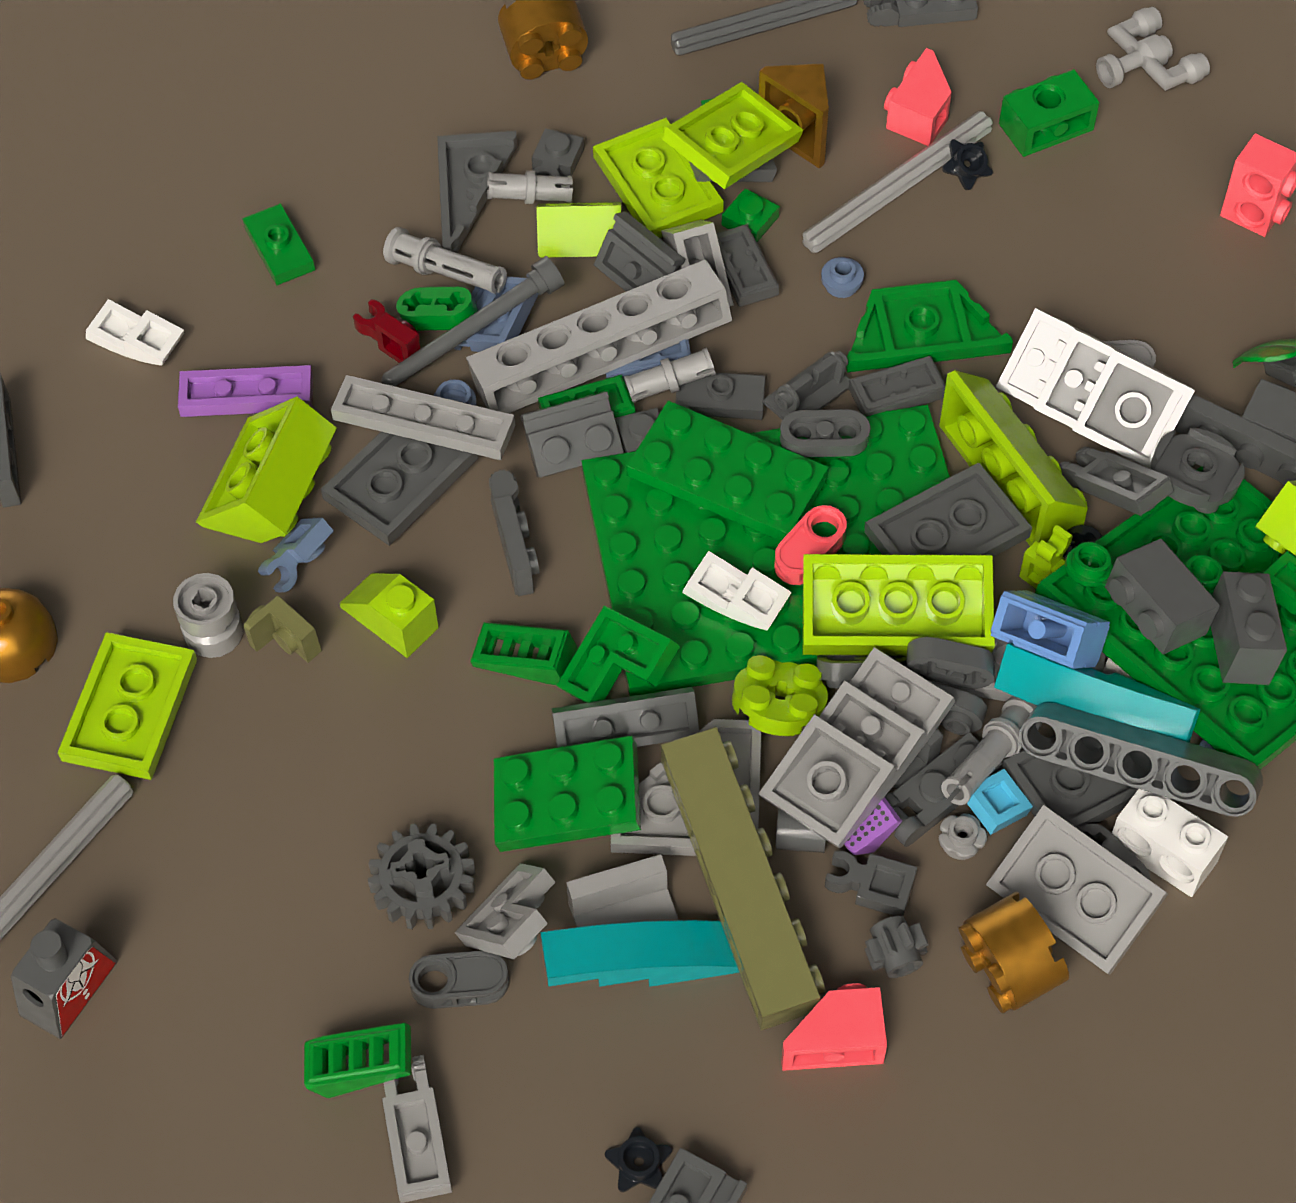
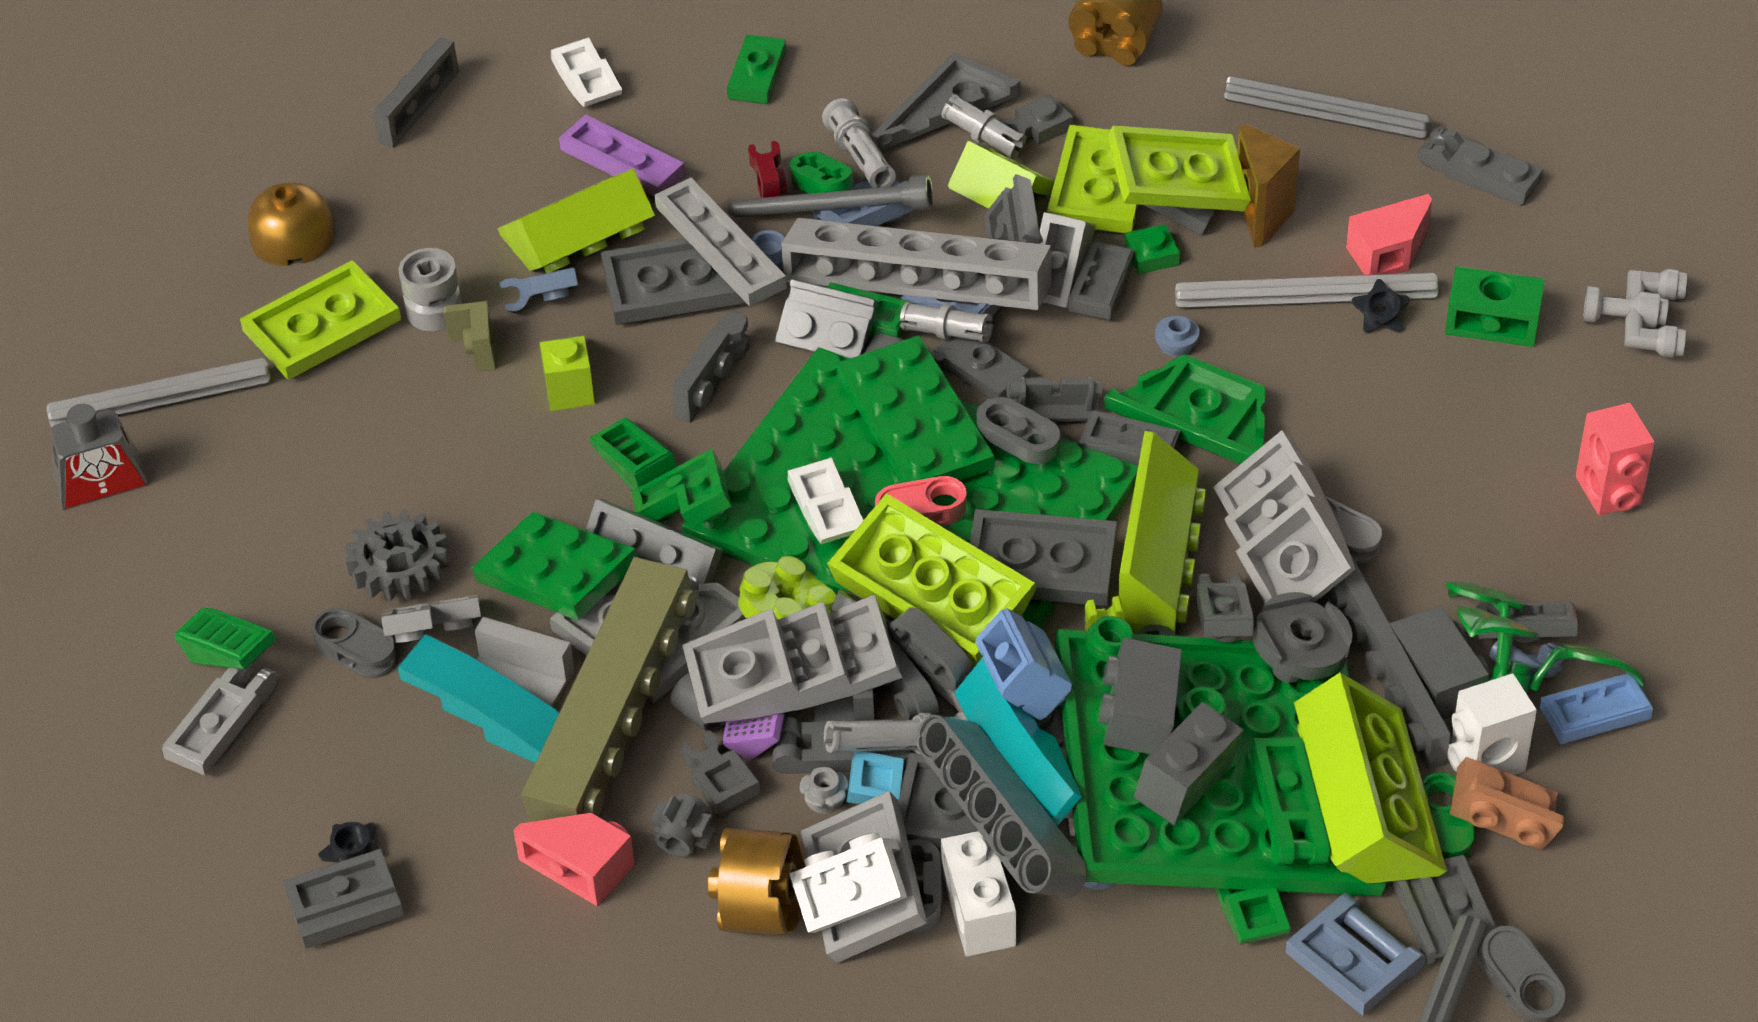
camera: 40 degrees right, 10 degrees down
(1091, 902) = (849, 883): none -> white bracket

